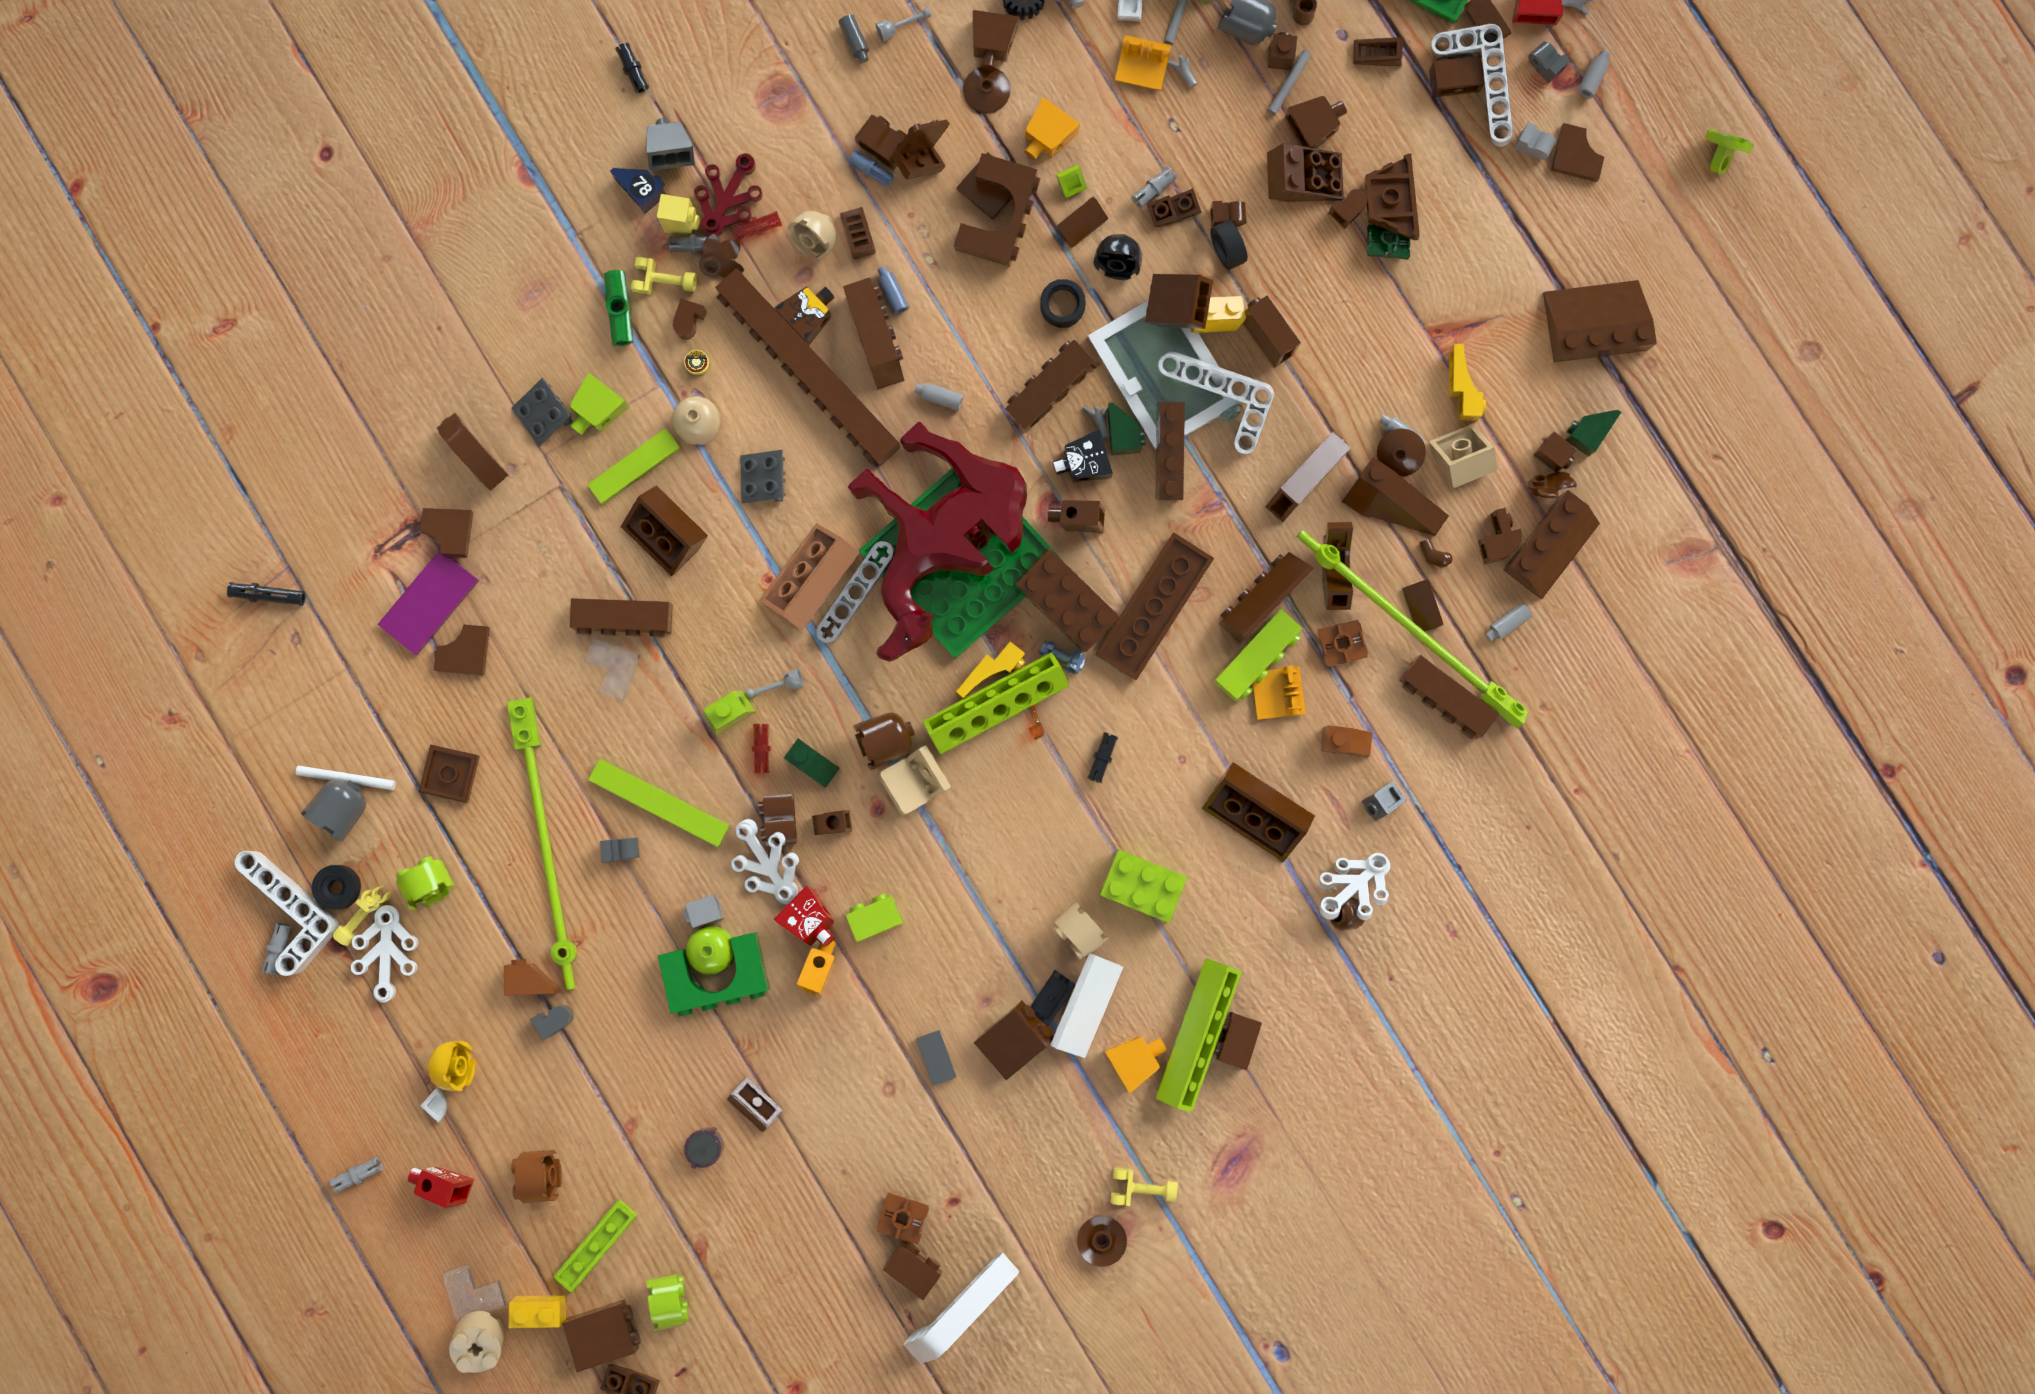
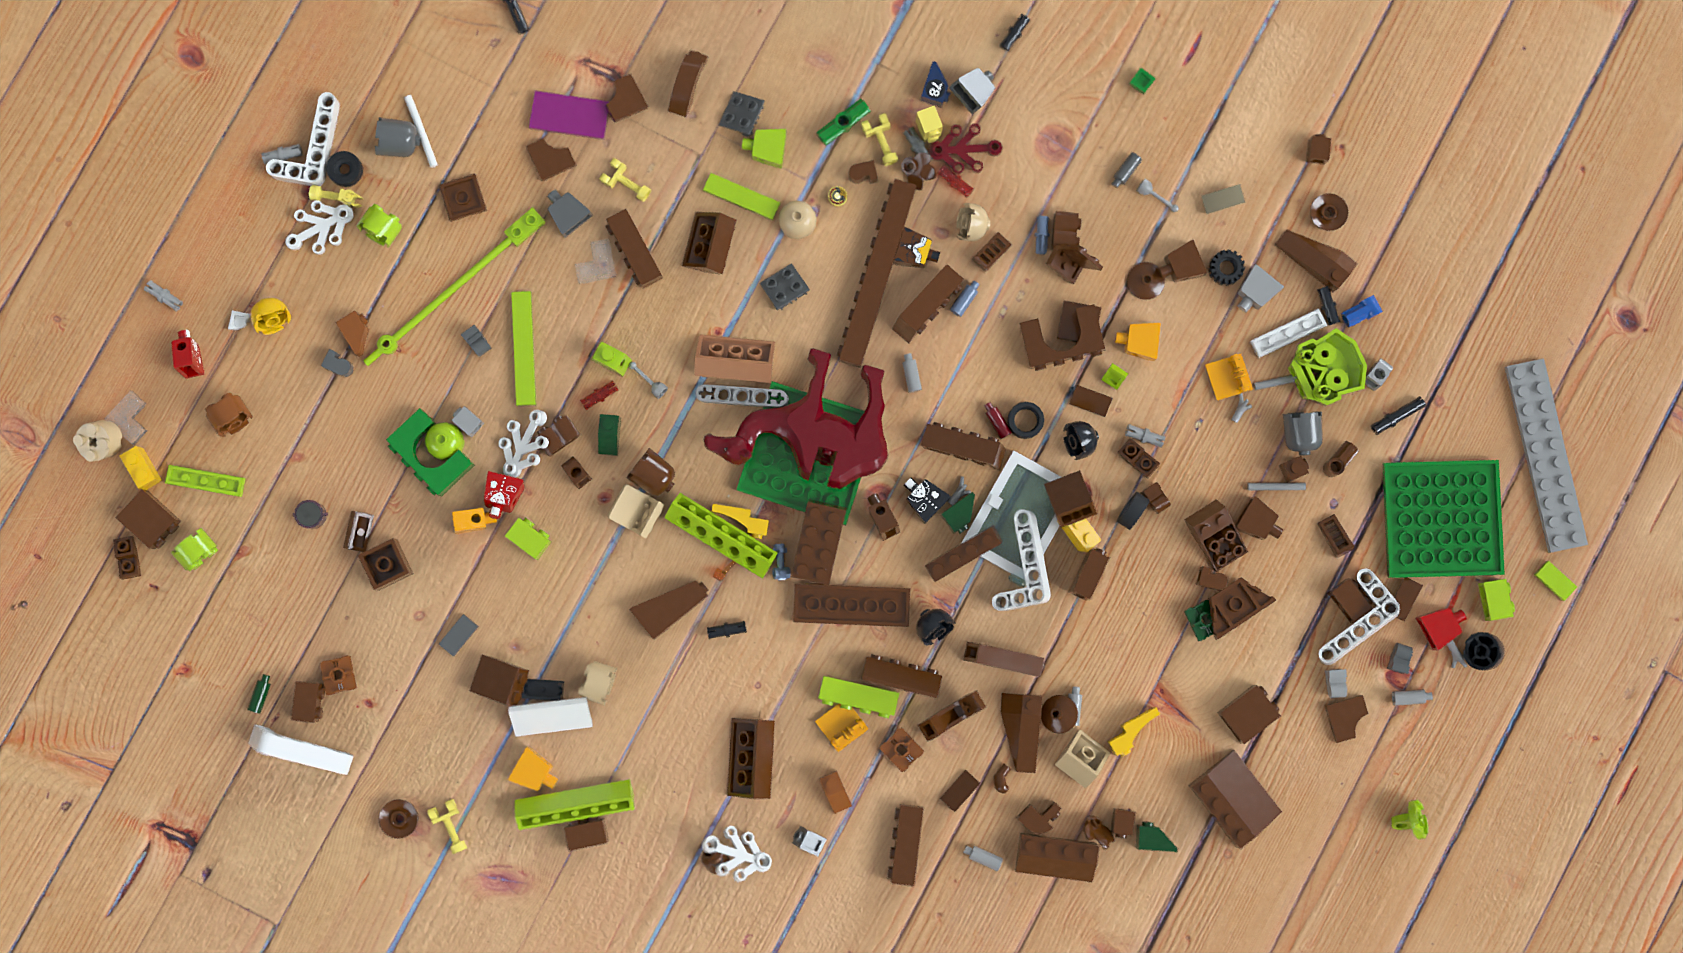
camera: 60 degrees right, 0 degrees up
(536, 666) = (567, 212): none -> dark grey torso
(563, 571) = (642, 192): none -> light yellow bar
(810, 1094) = (385, 564): none -> reddish brown brick
(872, 1320) = (259, 694): none -> dark green cylinder
(1042, 808) = (665, 610): none -> reddish brown slope
(1045, 334) = (997, 421): none -> dark red cylinder
(1143, 886) = (654, 708): lime brick -> none
(1228, 529) = (934, 624): none -> black cylinder
(1492, 695) = (926, 875): lime bar -> none
(1516, 252) = (1249, 713): none -> reddish brown brick

